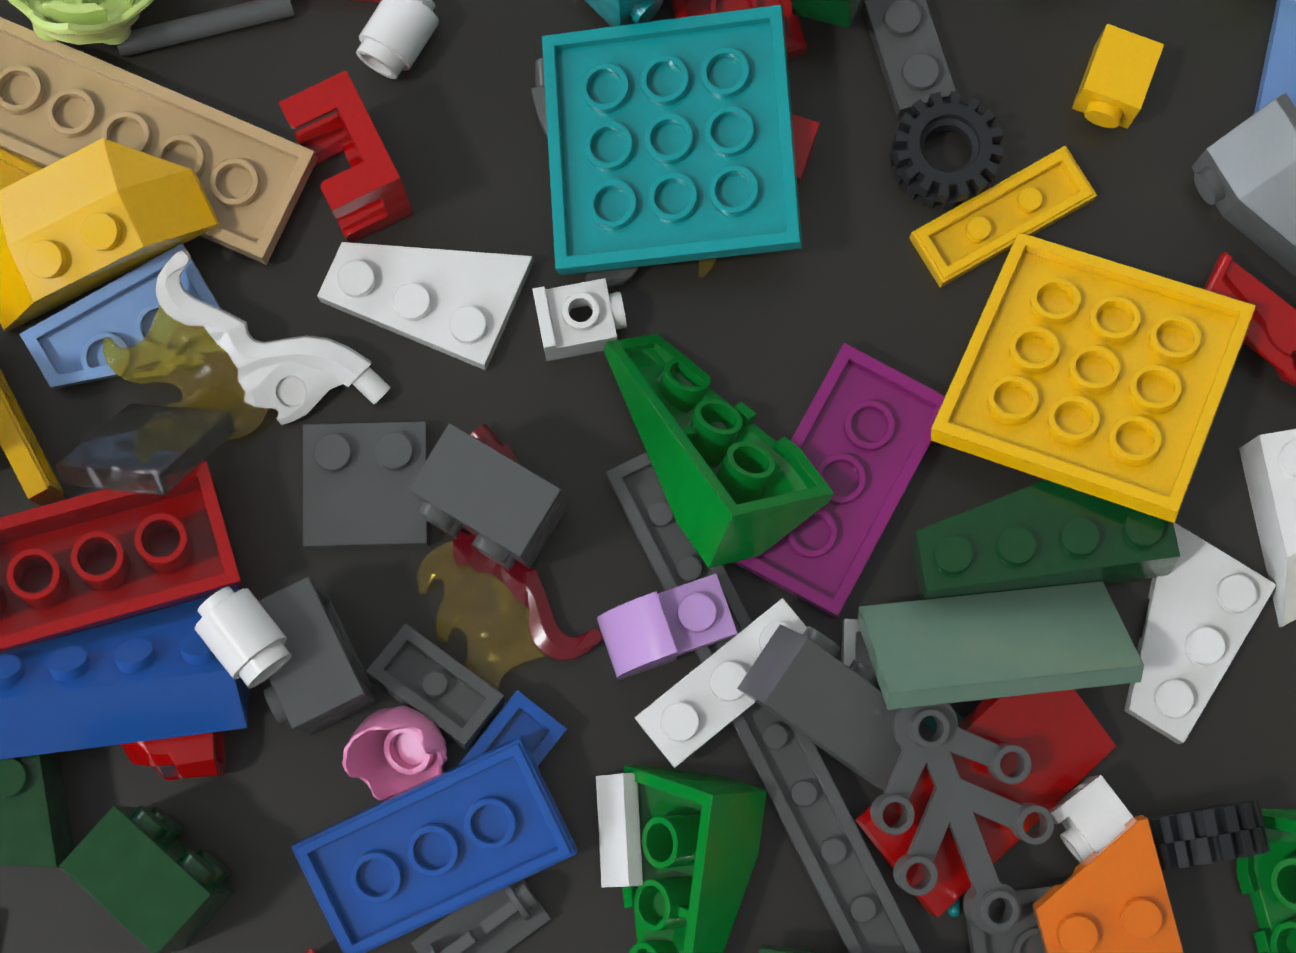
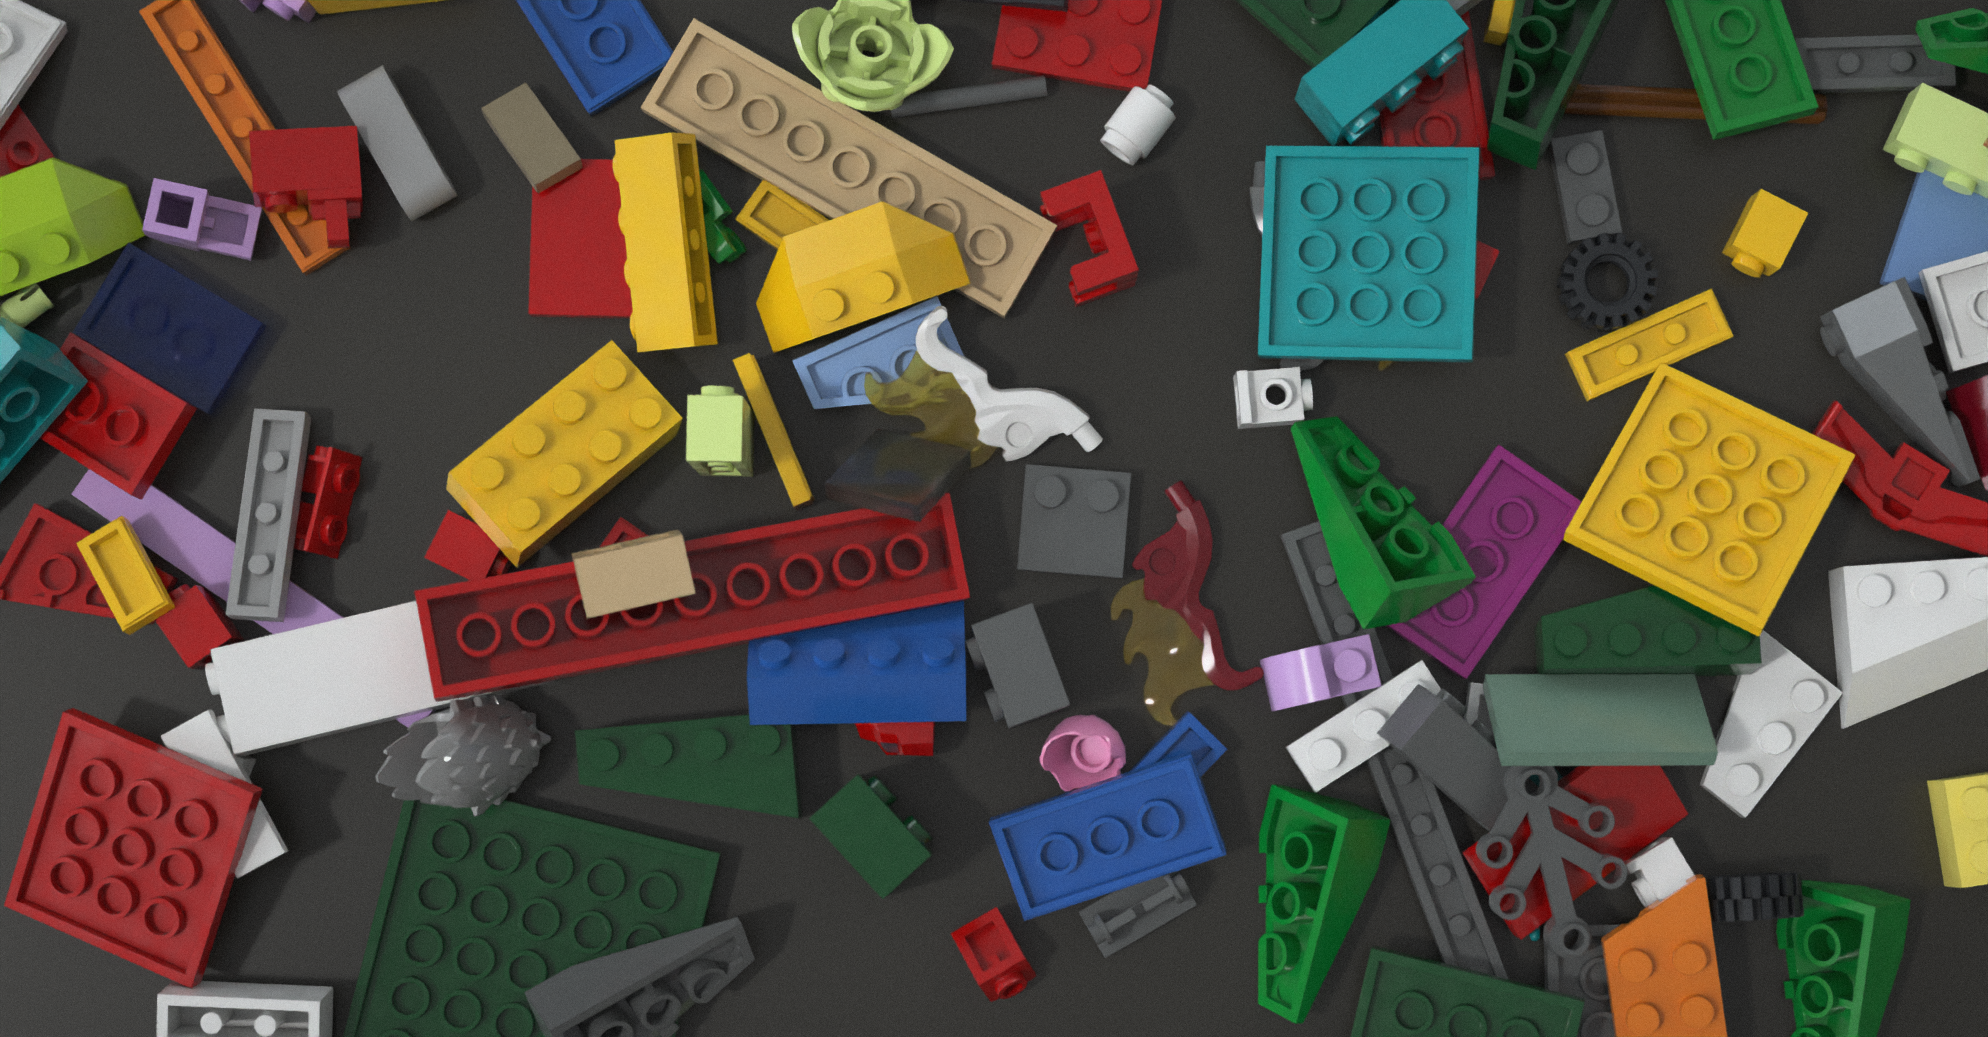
camera: 10 degrees right, 5 degrees up
(242, 636) = (978, 648): white brick -> none
(429, 295) = (1143, 361): white wing -> none
(436, 686) = (1120, 700): dark grey plate -> none
(488, 496) = (1185, 552): dark grey brick -> none
(619, 830) = (1261, 838): white piece -> none

